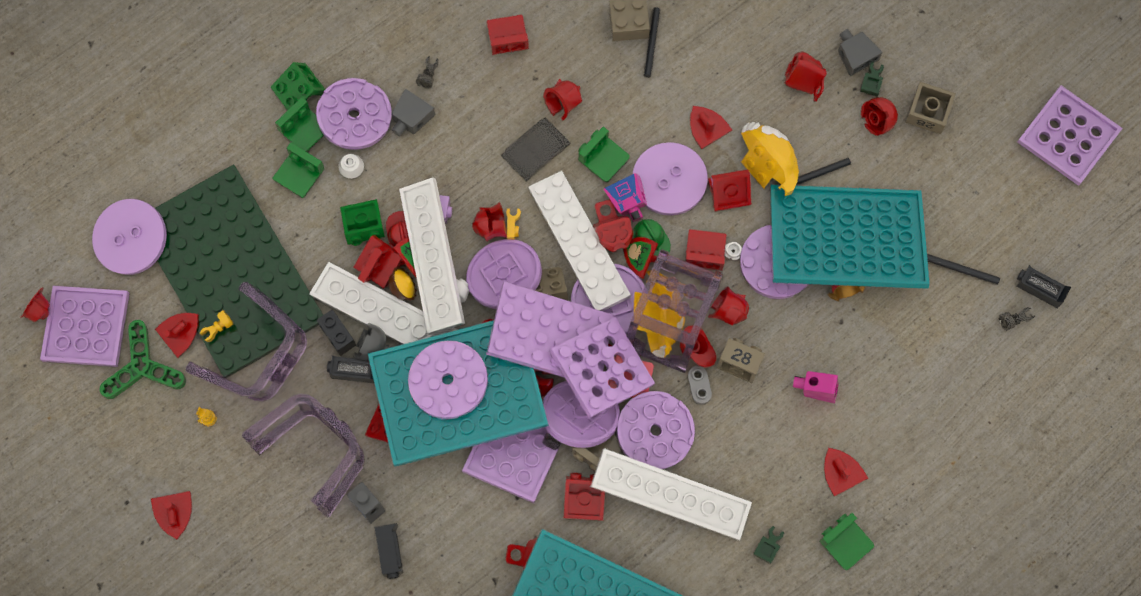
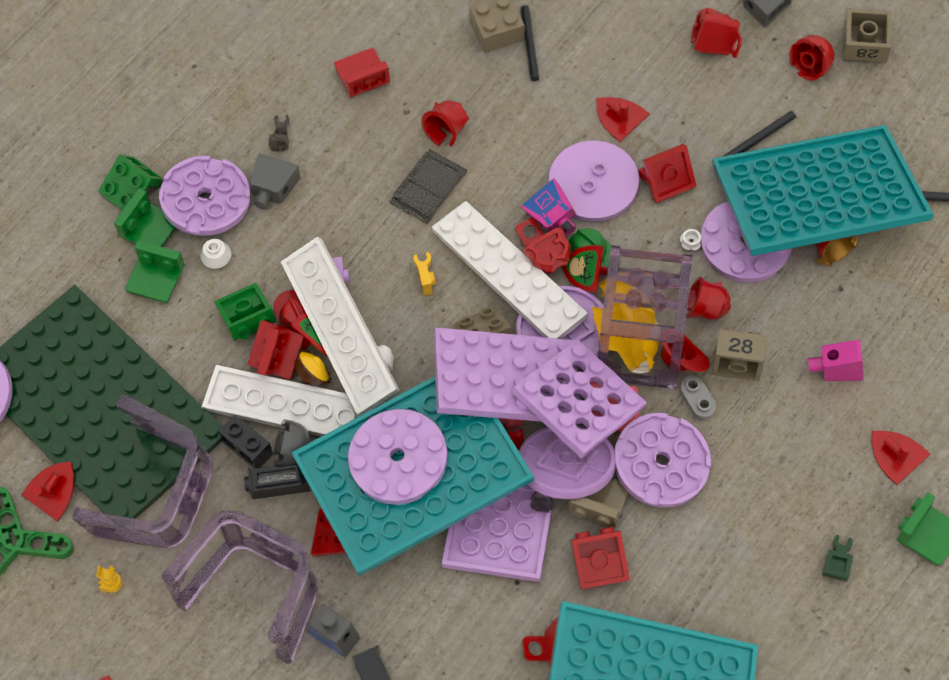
camera: 10 degrees left, 10 degrees down
(224, 320) = (94, 474): yellow piece -> none
(490, 222) = (398, 275): red helmet -> none
(500, 262) = (415, 318): lavender plate -> none
(602, 155) = (508, 173): green bracket -> none
(671, 494) = (704, 526): white plate -> none
(706, 249) = (661, 240): red bracket -> none
(770, 156) = (702, 127): yellow animal -> none
(872, 81) = (791, 24): dark green plate -> none

